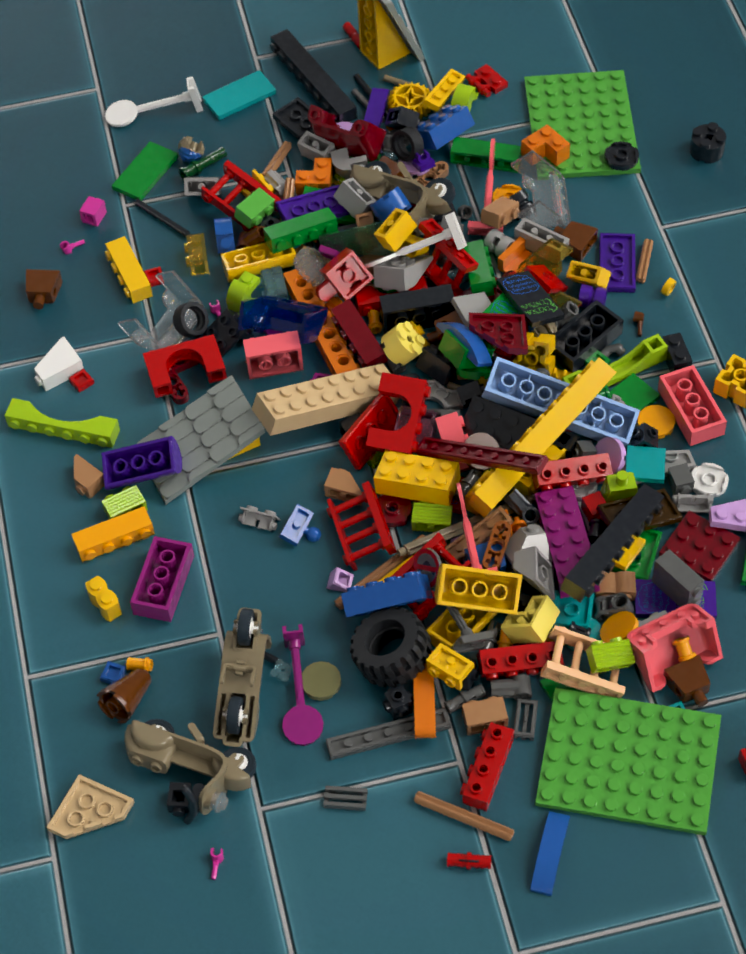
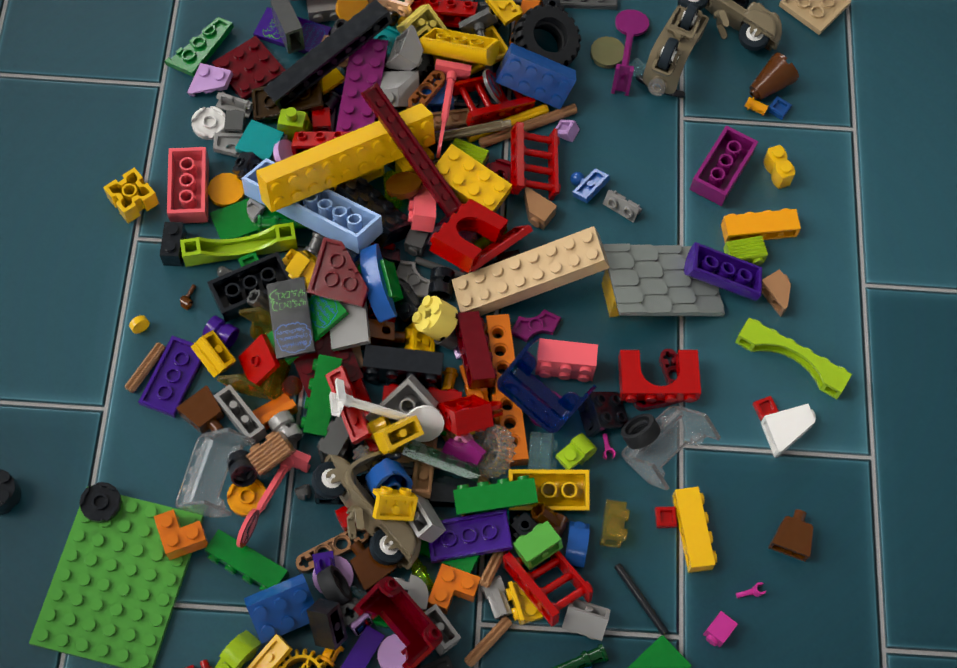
camera: 170 degrees left, 10 degrees up
(379, 185) = (394, 504): none -> yellow bracket

